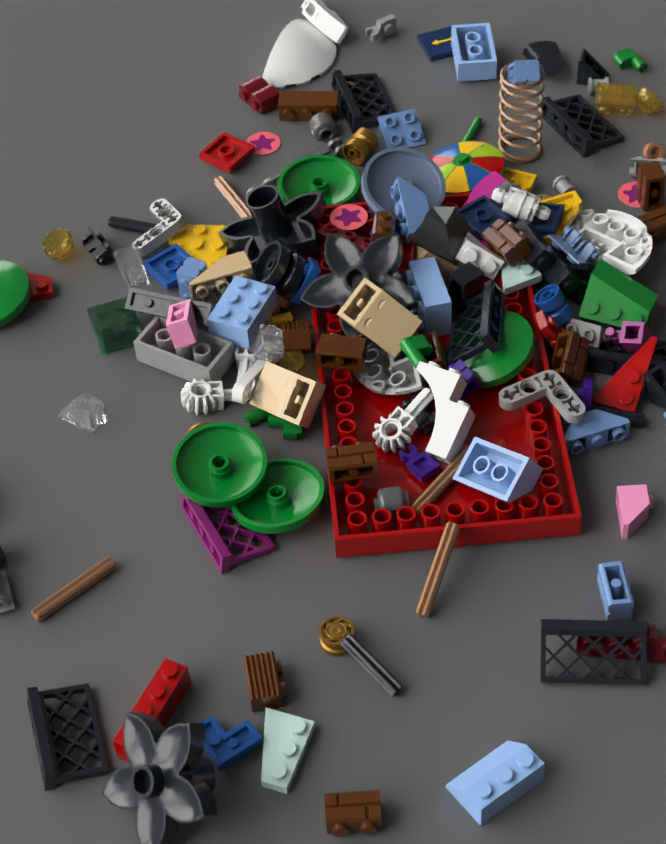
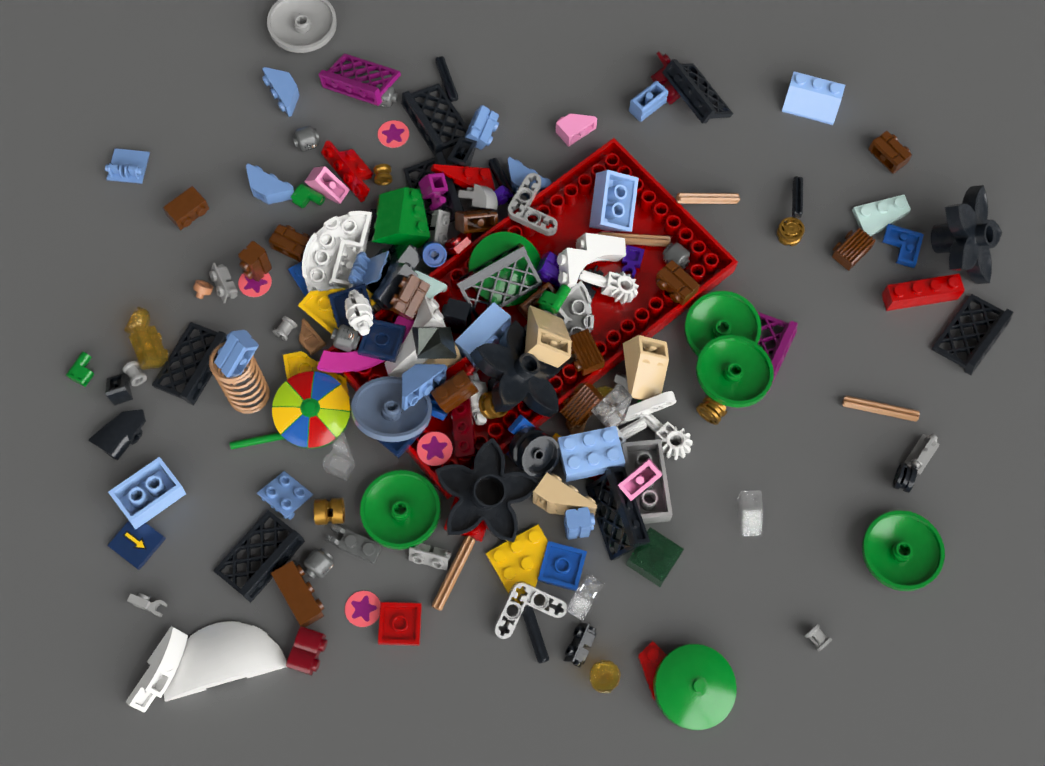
camera: 130 degrees left, 20 degrees up
(592, 368) = (481, 196): none -> light grey brick

